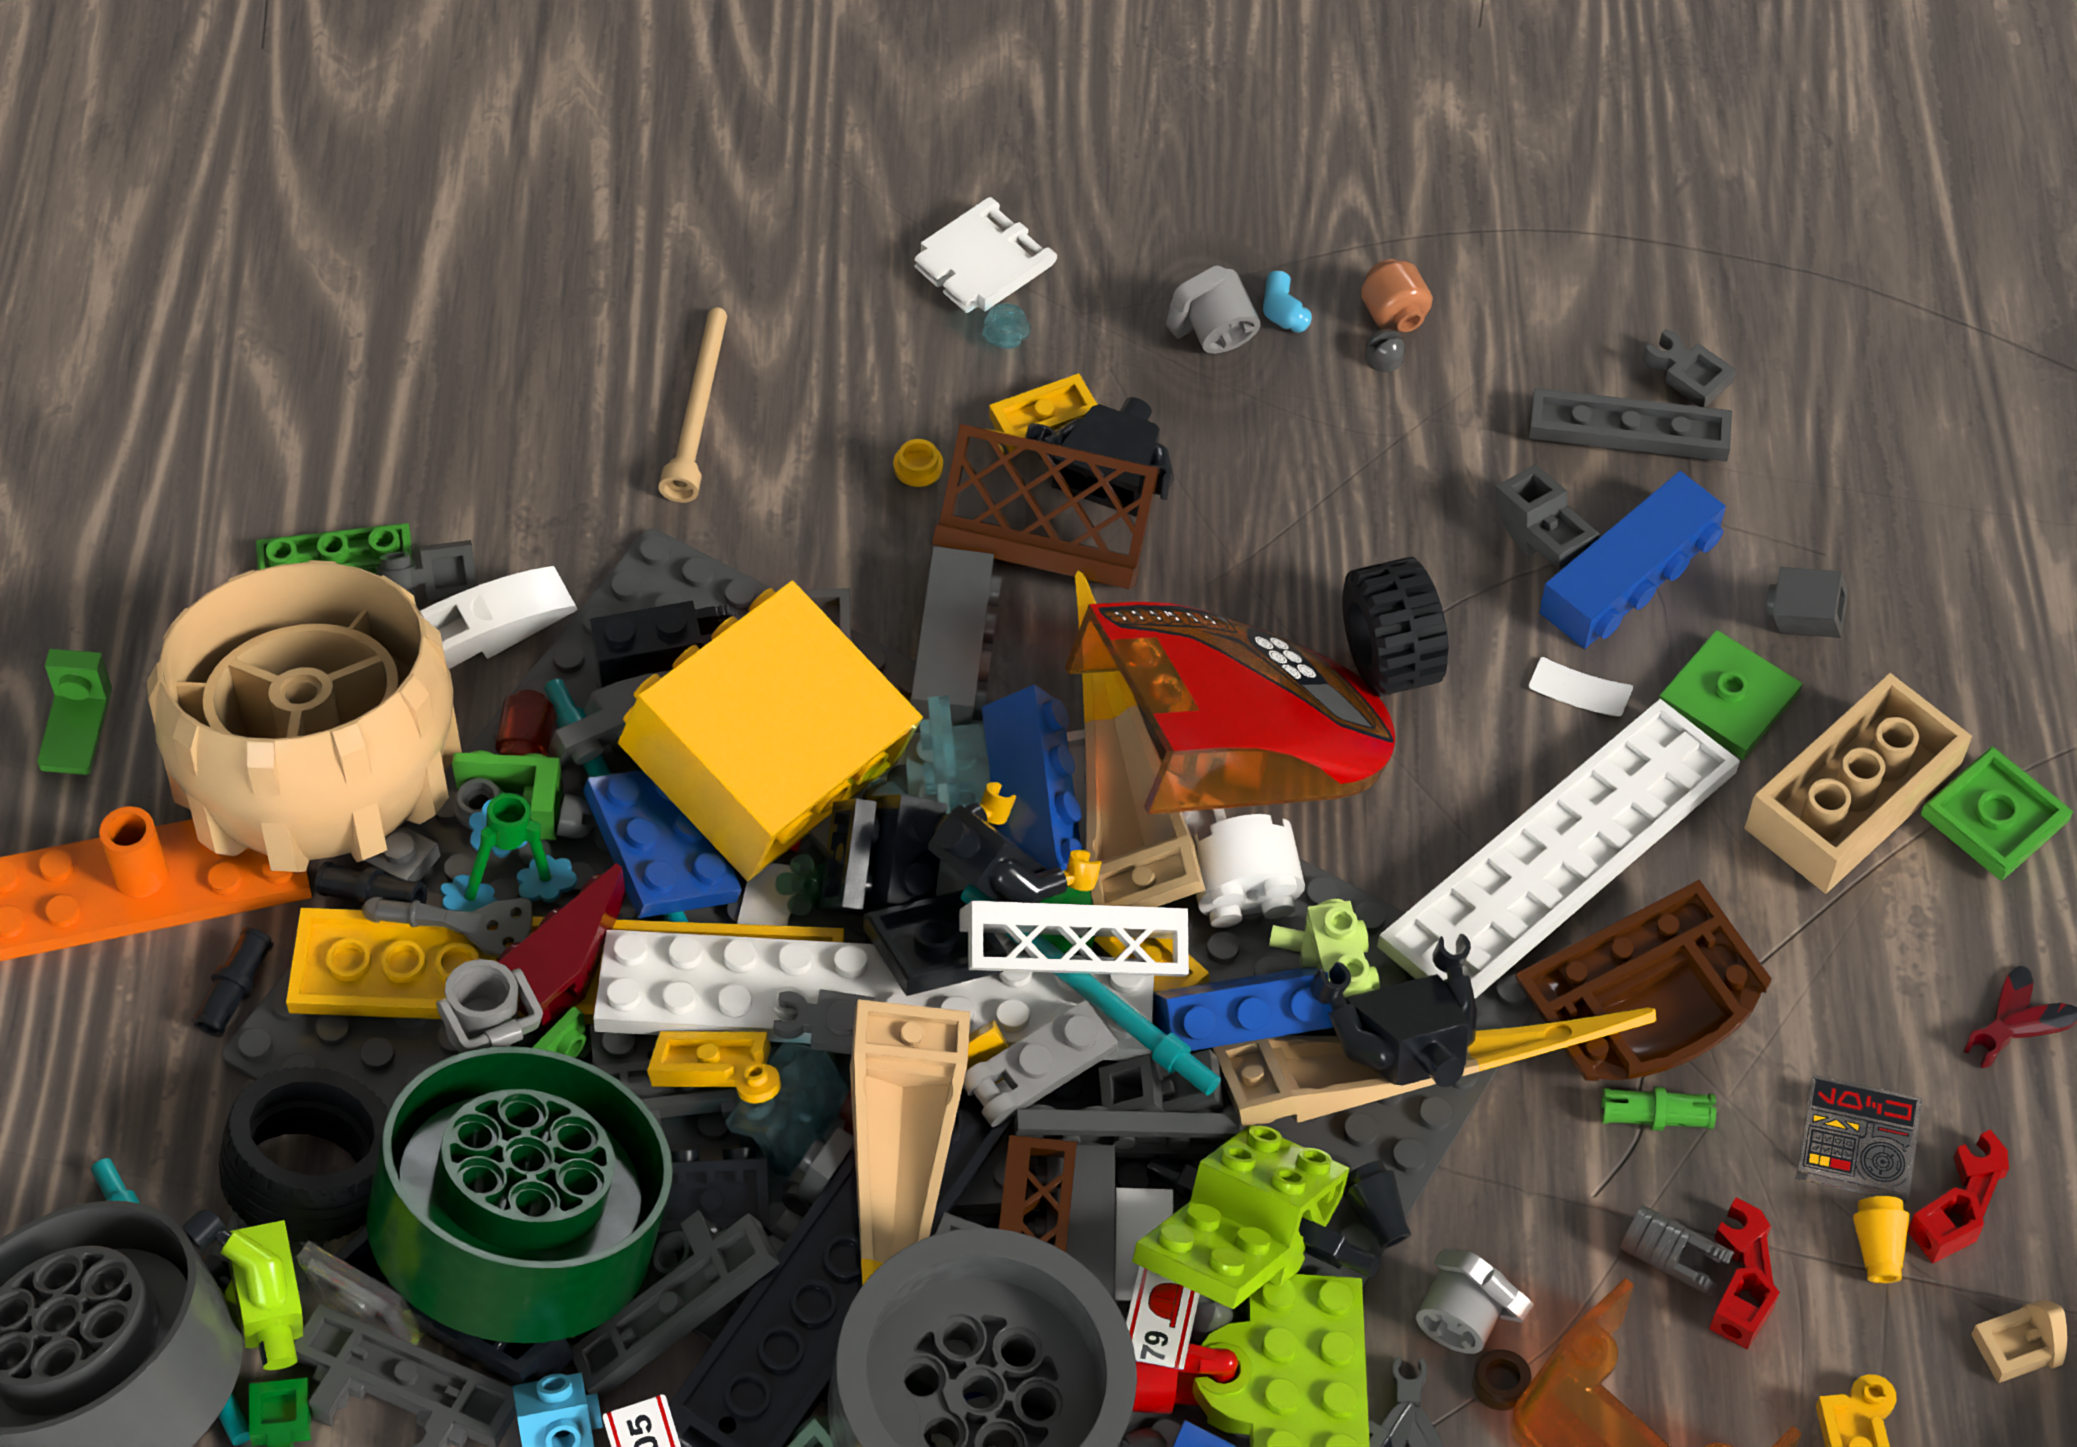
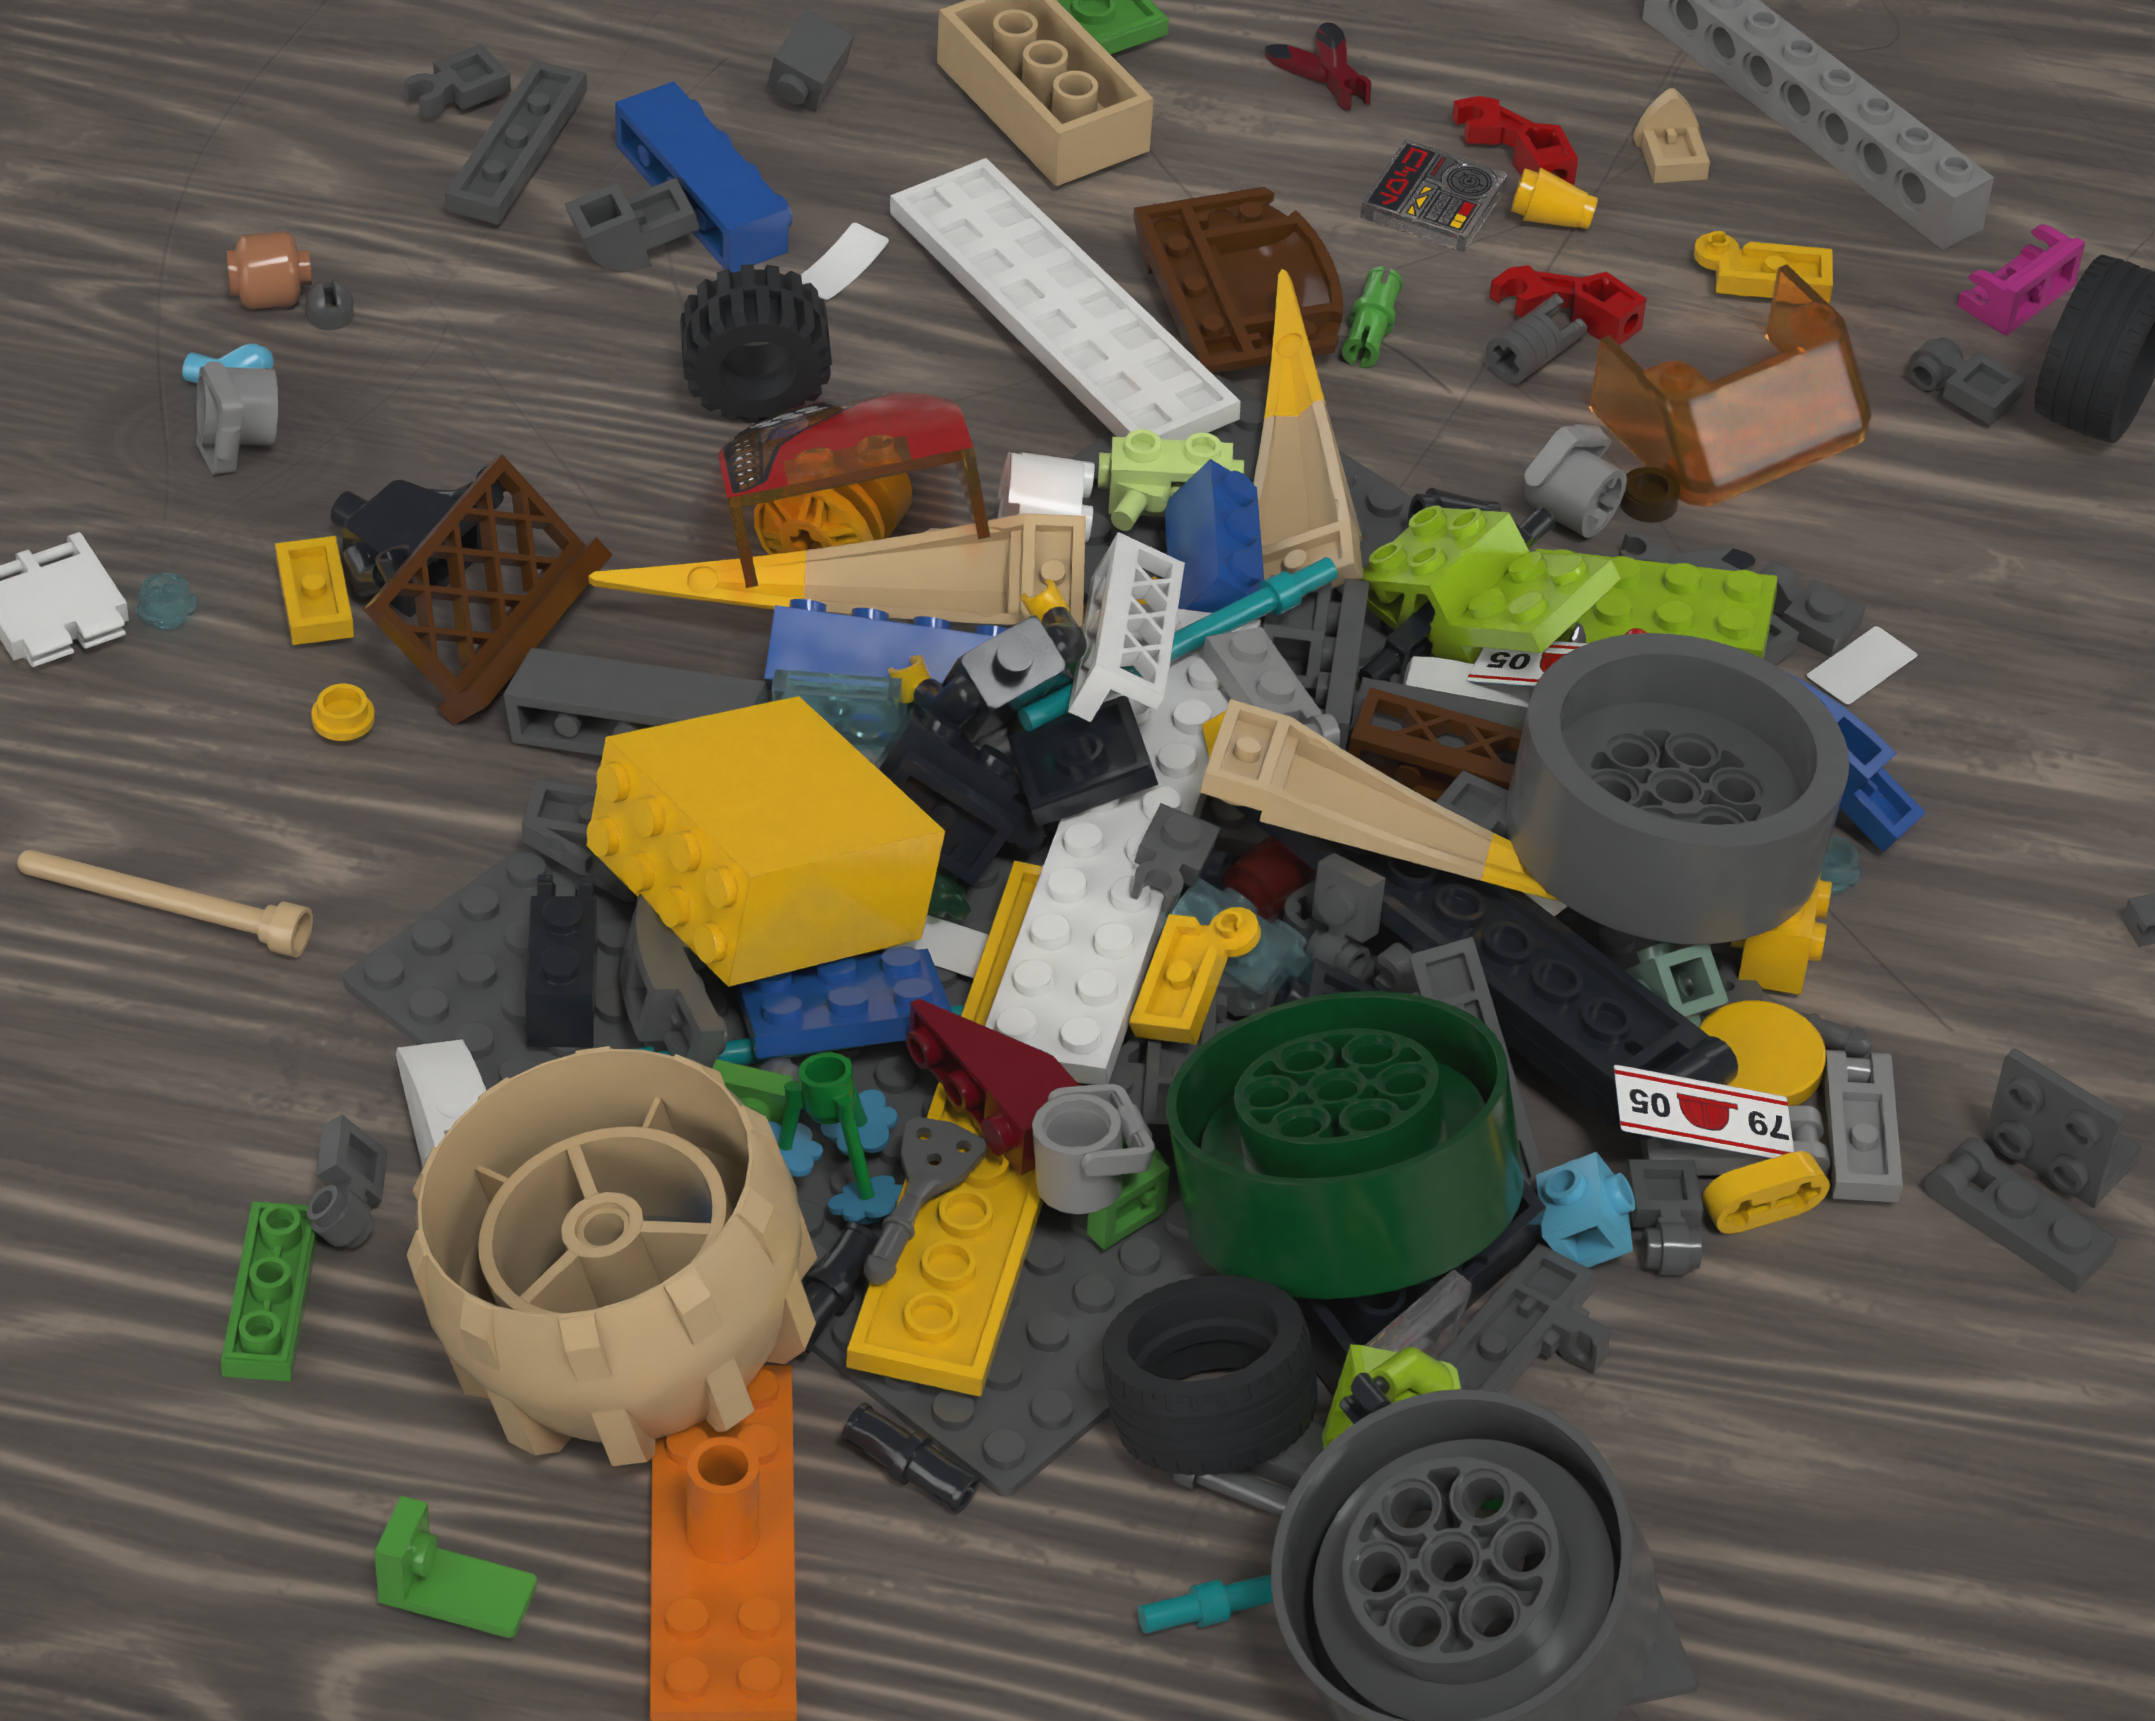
camera: 80 degrees left, 10 degrees down
(1408, 1027) = (1275, 423): black torso -> none
(1731, 694) = (885, 155): bright green plate -> none

